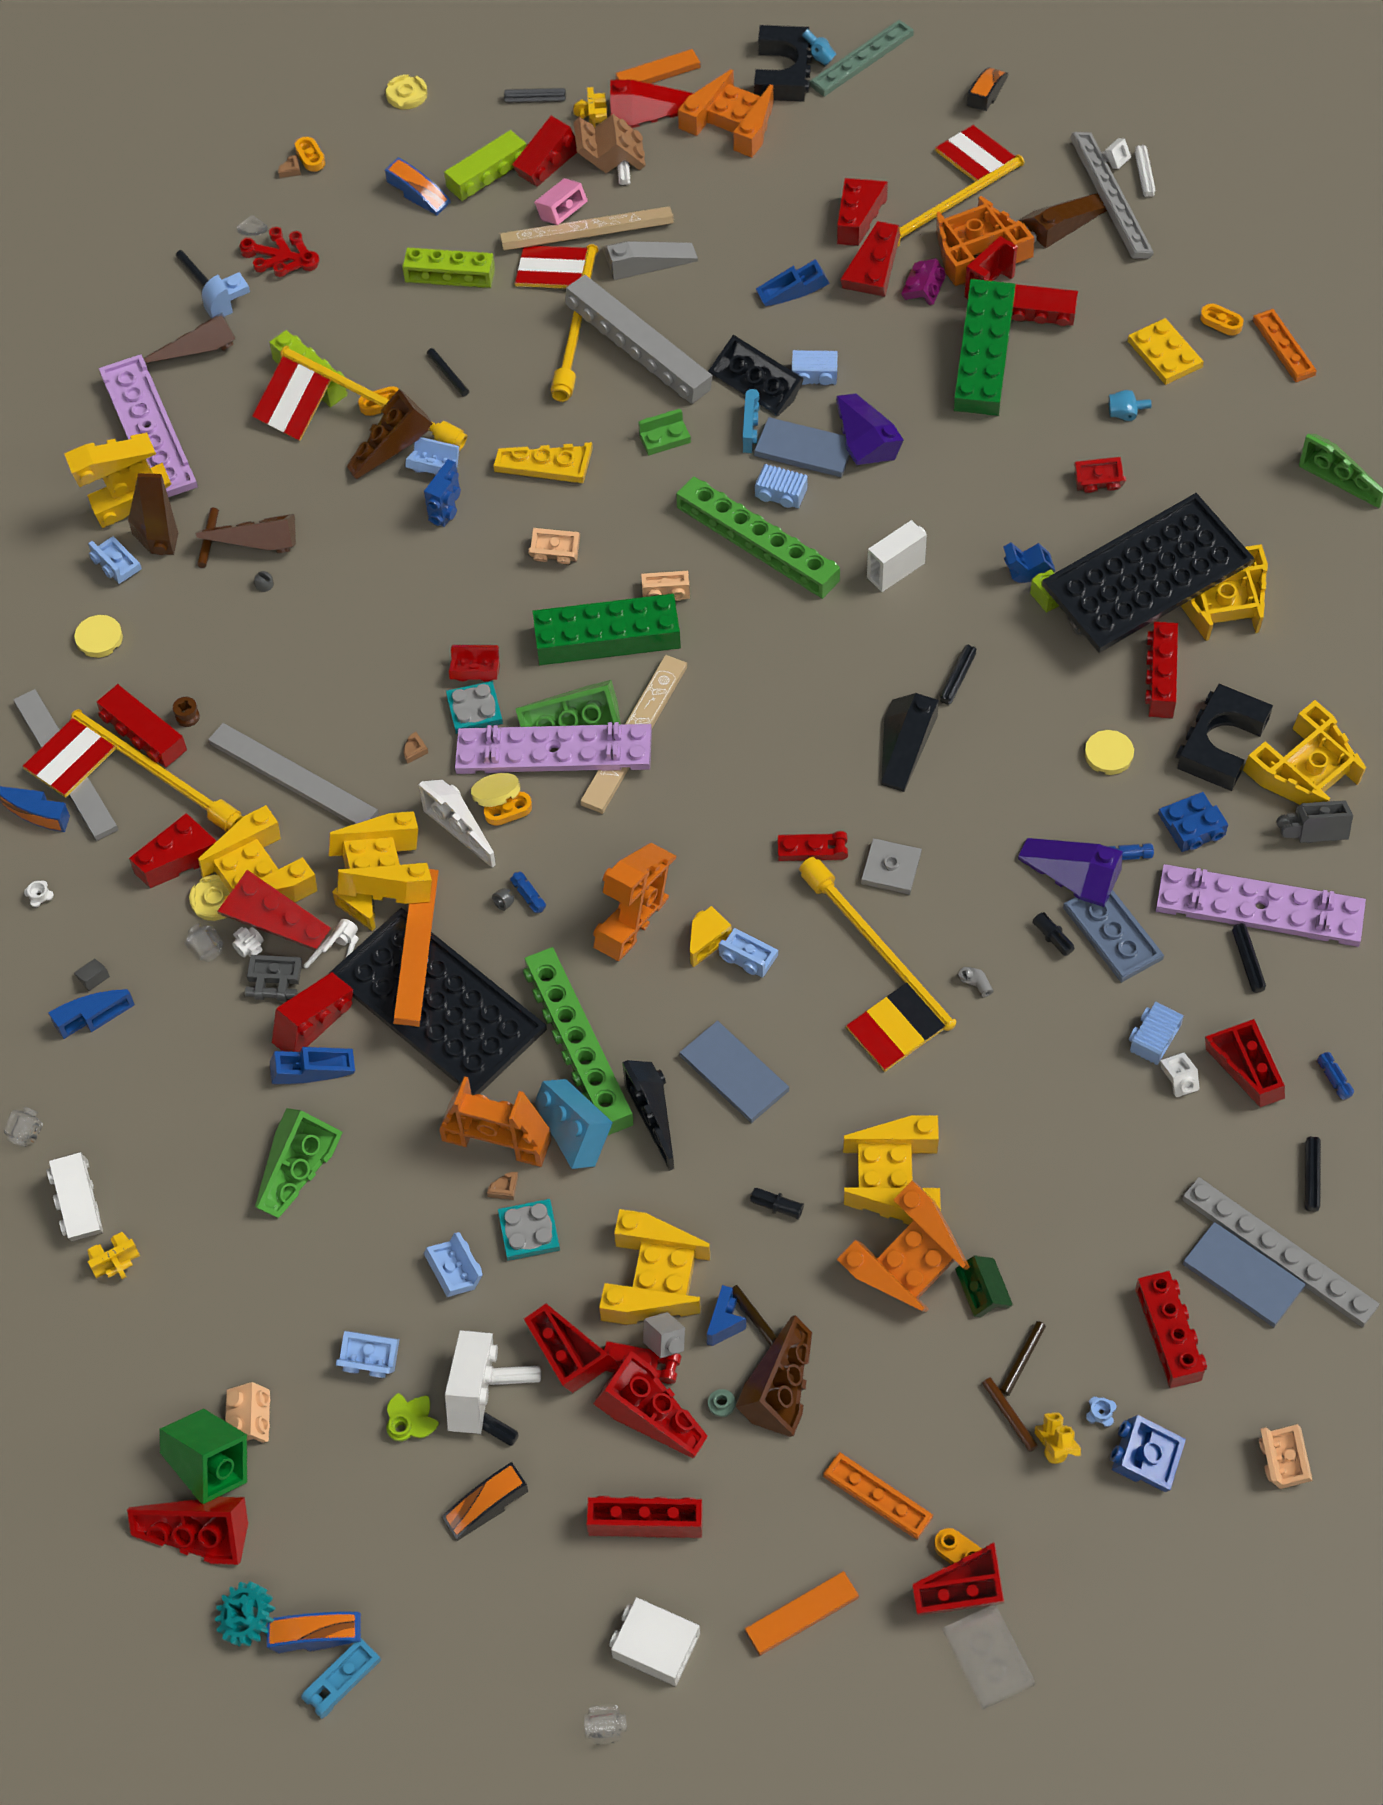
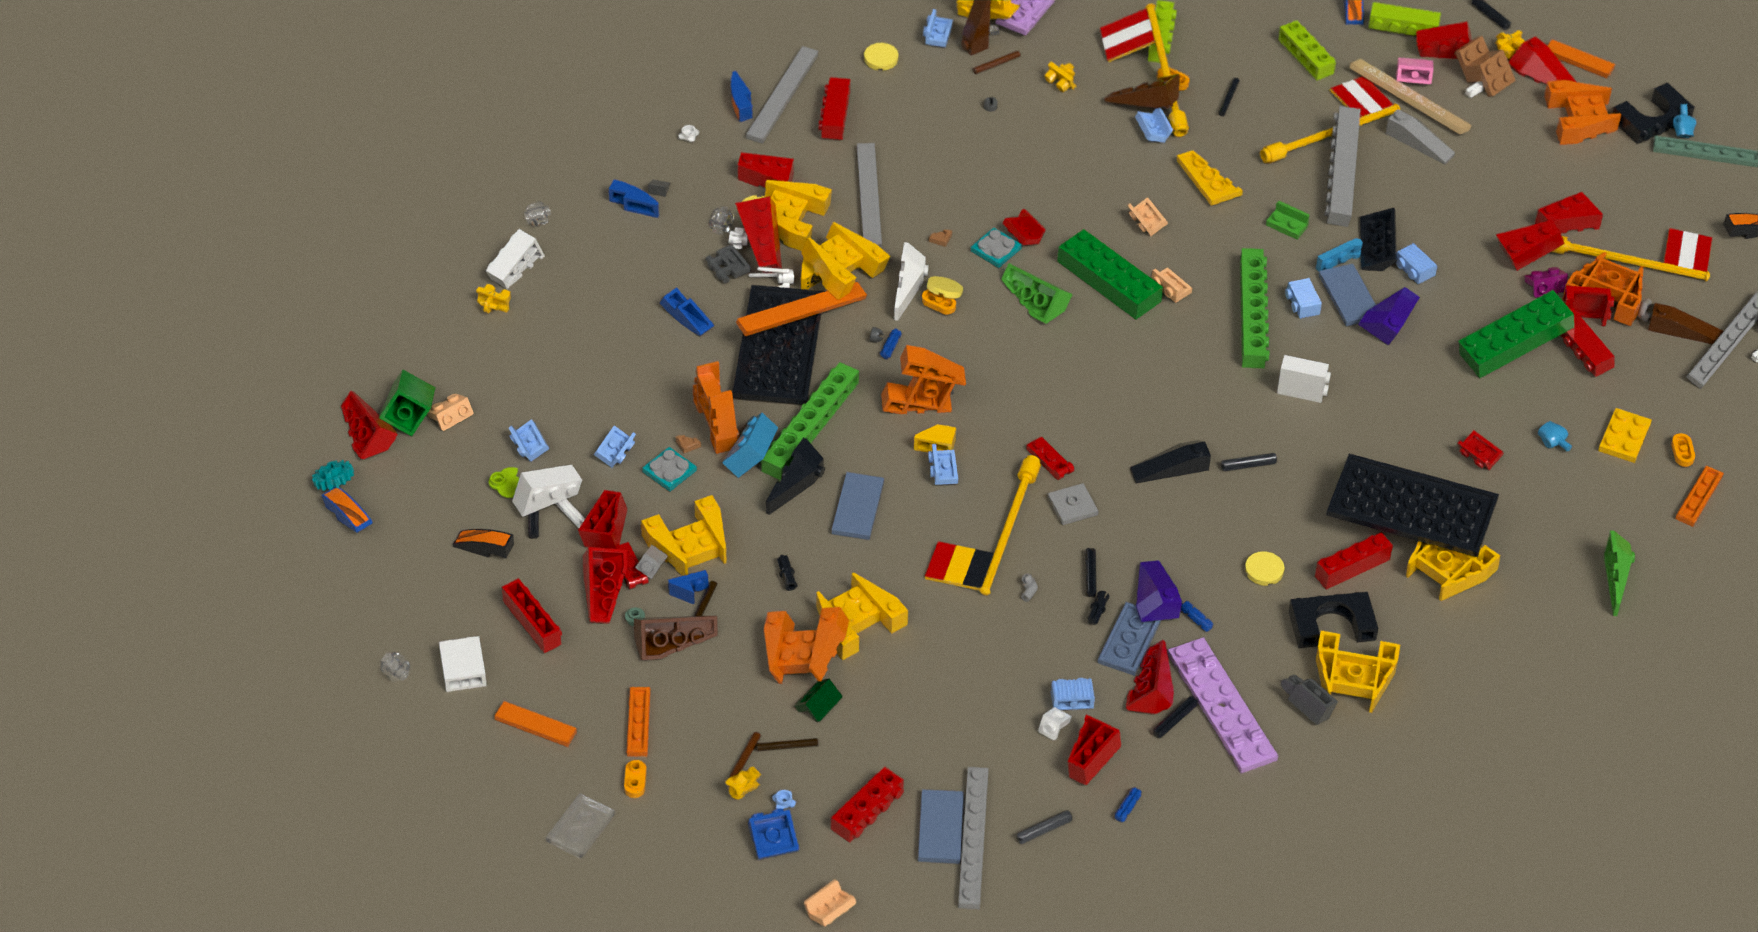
camera: 50 degrees right, 10 degrees down
(85, 744) = (796, 93): flag -> none
(190, 716) = (866, 123): reddish brown wheel -> none
(267, 534) = (1017, 80): reddish brown wedge -> none
(287, 489) = (1063, 74): none -> yellow hips
(295, 1155) = (624, 339): bright green wedge -> none
(310, 1013) = (718, 290): red wedge -> none
(341, 1677) = (331, 539): dark azure plate -> none
(442, 493) = (1129, 141): blue plate -> none
(529, 748) = (1001, 298): lavender piece -> none
(645, 712) = (1050, 330): tan tile -> none
(793, 284) = (1473, 218): blue slope -> none
(961, 1586) = (610, 782): red wedge -> none
(998, 909) = (1090, 572): none -> black axle
(1027, 564) = (1366, 447): blue brick -> none
(1193, 822) = (1252, 637): blue plate -> none
(1195, 951) = (1154, 683): none -> red wedge

